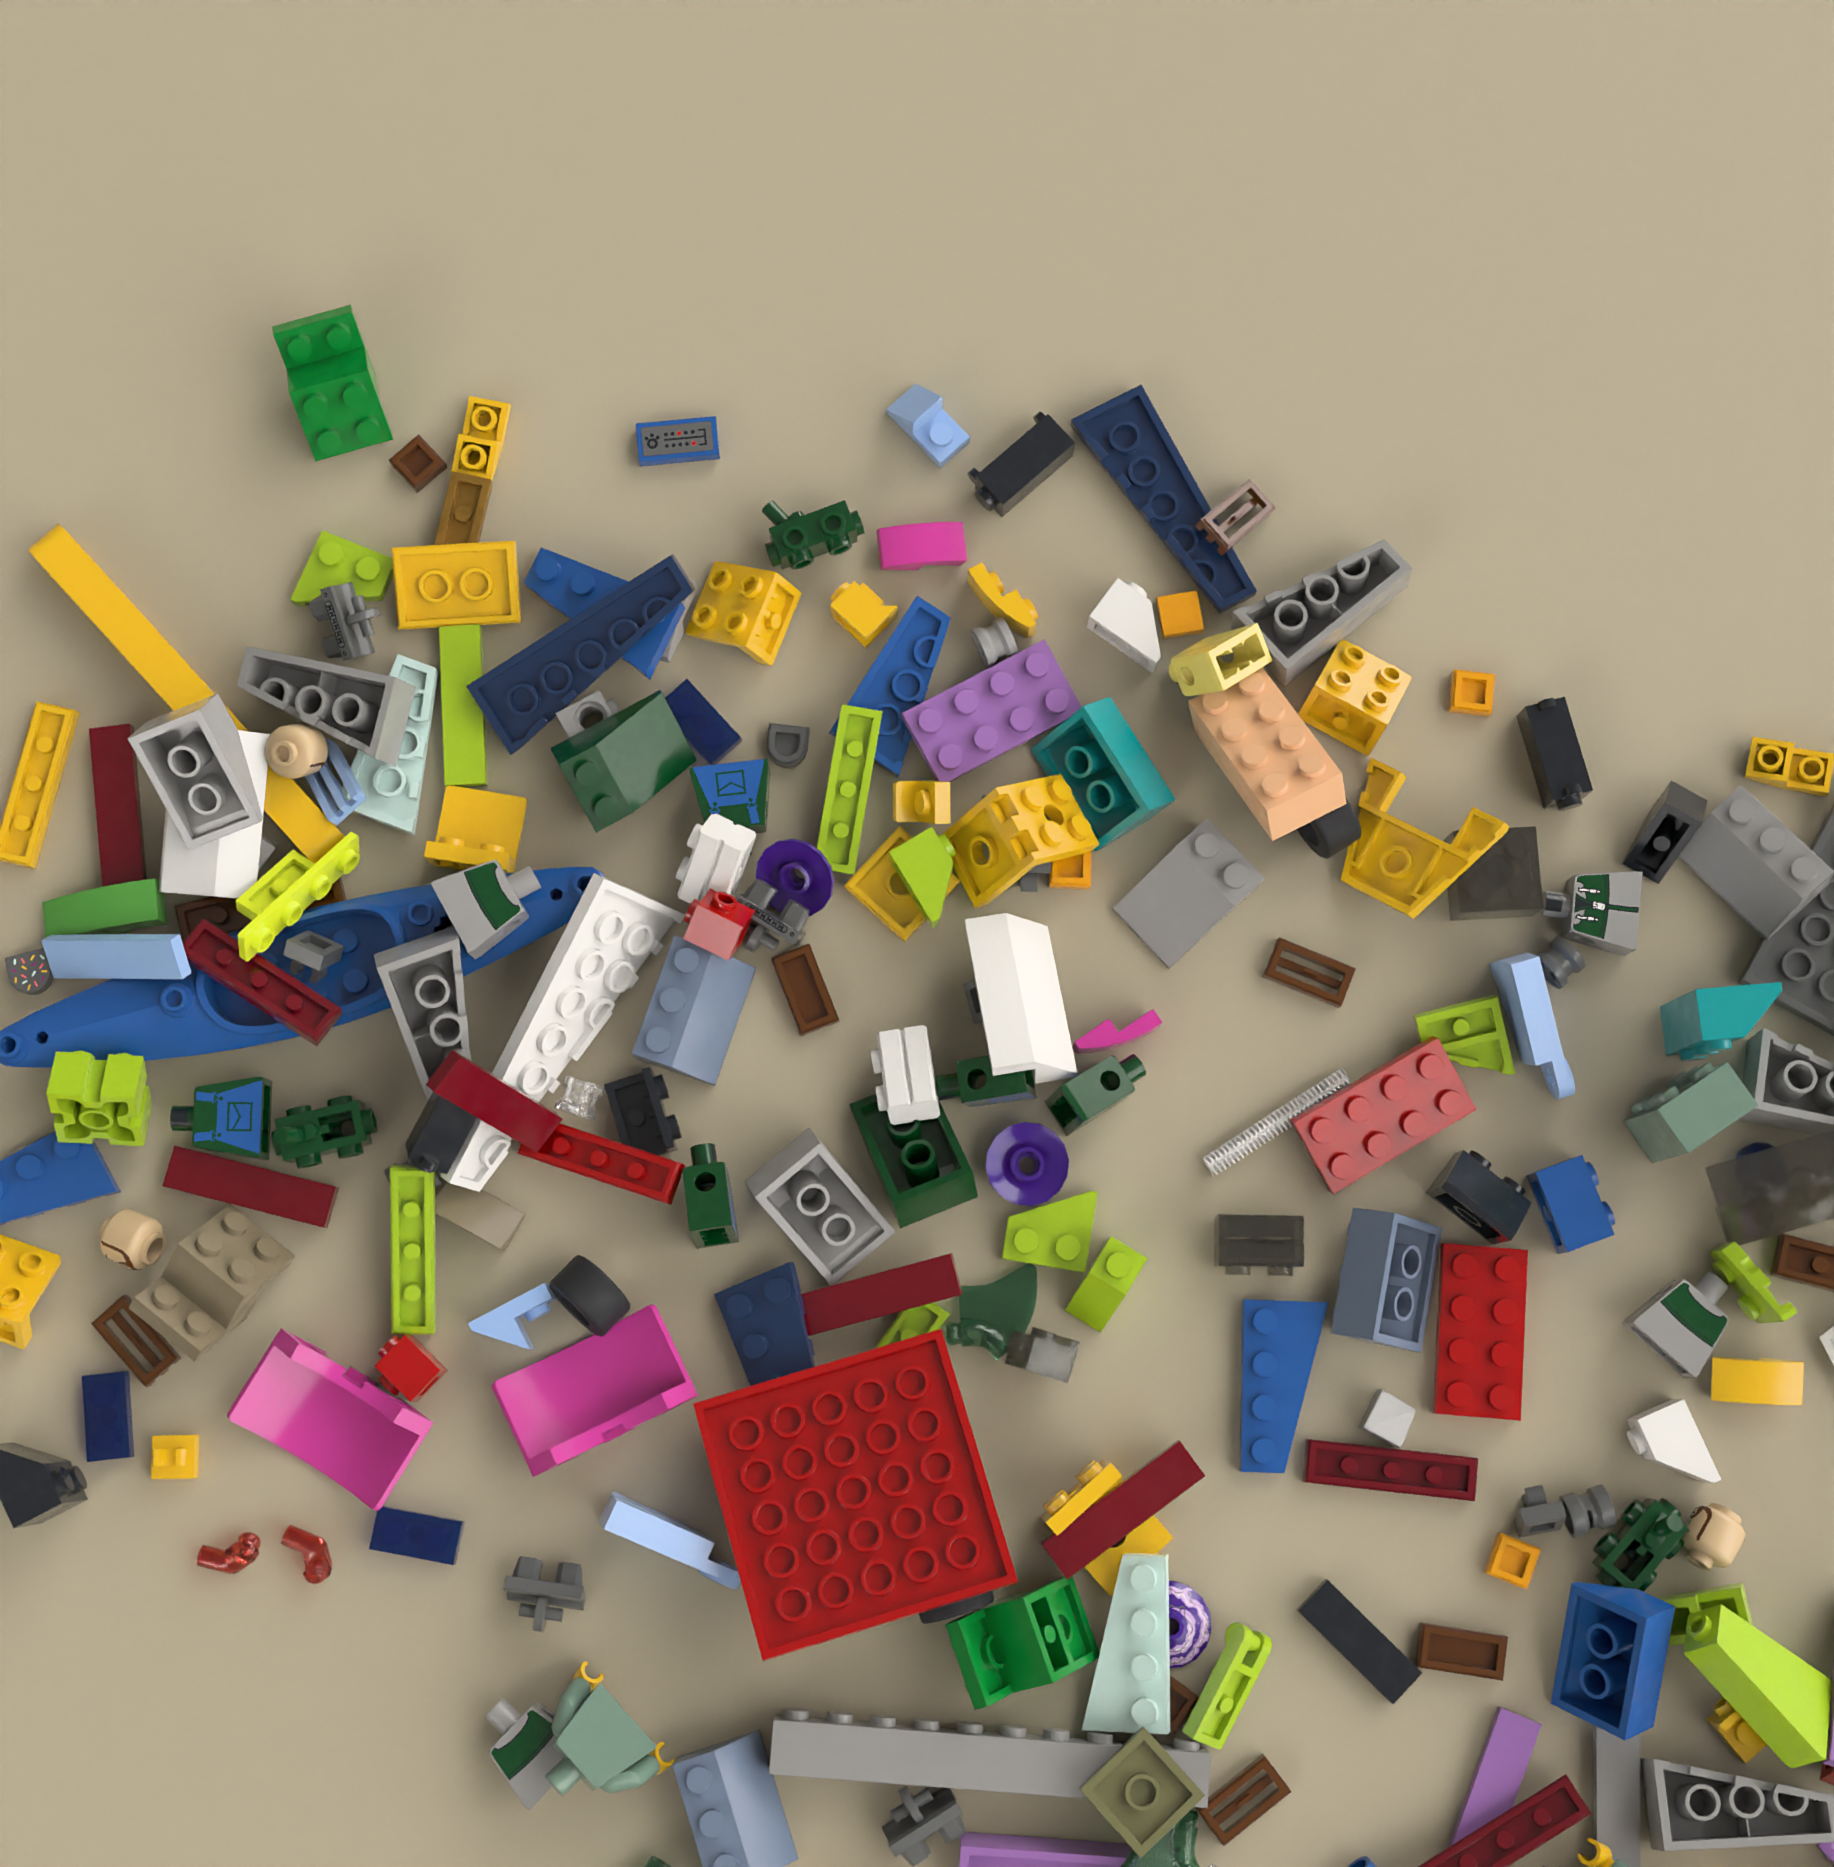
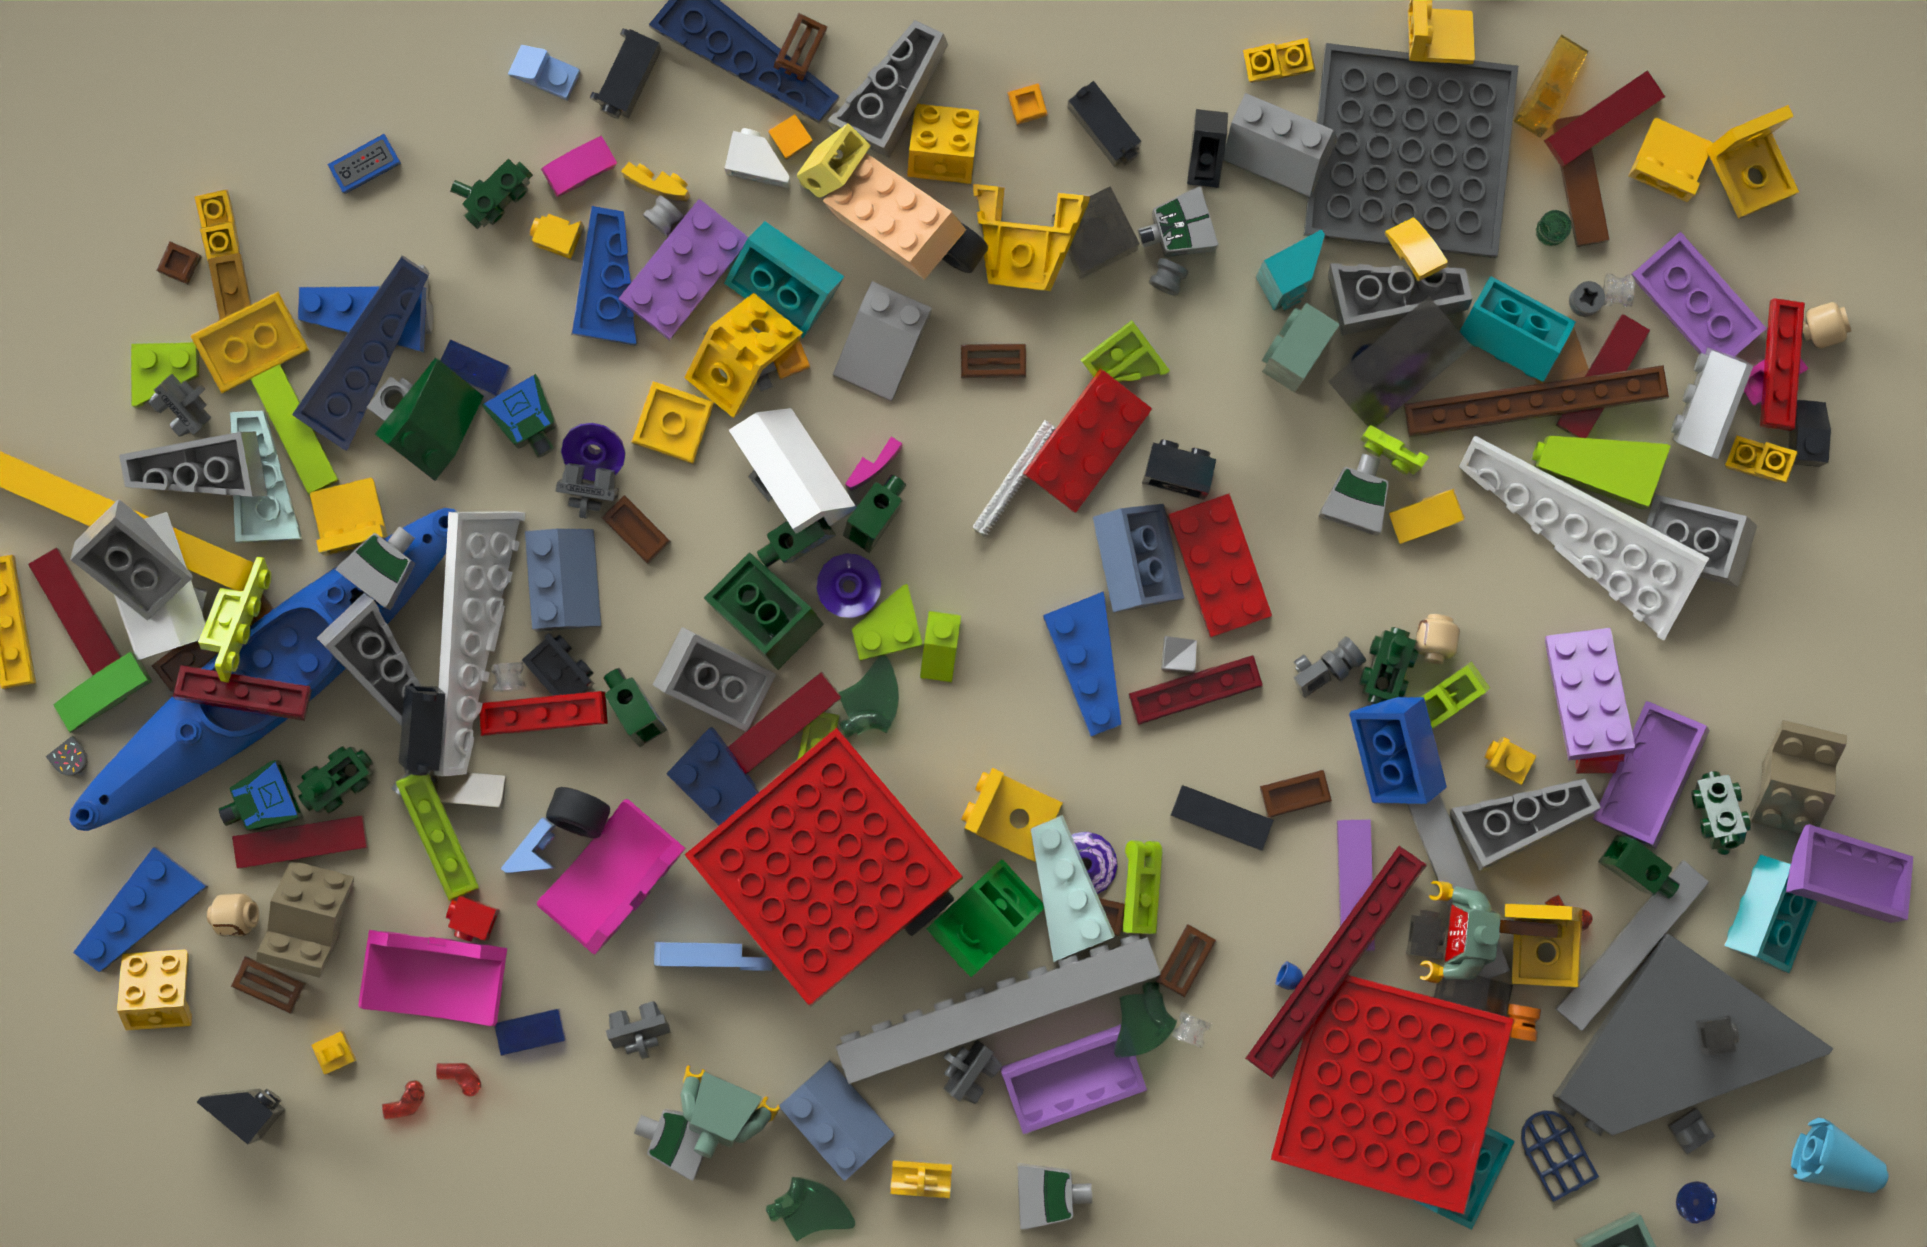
camera: 25 degrees left, 5 degrees up
(99, 1098) = (165, 825): lime brick -> none
(108, 1416) = (273, 1045): clear blue plate -> none
(116, 956) = (129, 719): light blue tile -> none
(296, 750) = (190, 515): tan head -> none
(314, 951) = (270, 654): dark grey tile -> none
(323, 795) = (209, 516): light blue tile -> none
(332, 382) = (89, 231): green bracket -> none
(493, 1101) = (450, 704): dark red tile -> none
(716, 858) = (532, 467): white brick -> none
(717, 923) = (552, 509): brick -> none
(744, 610) = (469, 270): yellow bracket -> none
(787, 744) = (544, 355): dark grey tile -> none
(848, 786) = (603, 369): lime plate -> none
(907, 1075) = (735, 558): white brick -> none
(921, 801) = (661, 356): yellow bracket -> none
(926, 871) = (686, 406): lime slope -> none
(1042, 1353) = (916, 714): clear smoke brick -> none
(1123, 1509) = (1018, 797): dark red tile -> none
(1141, 1792) = (1109, 982): olive plate -> none
(1259, 1242) = (1036, 570): clear smoke brick -> none
(1512, 1560) = (1306, 715): light orange tile -> none
(1531, 1019) = (1165, 327): light blue piece -> none
(1571, 1204) = (1247, 447): blue brick -> none
(1672, 1440) = (1383, 584): white slope -> none
(1763, 1682) = (1506, 722): lime slope -> none

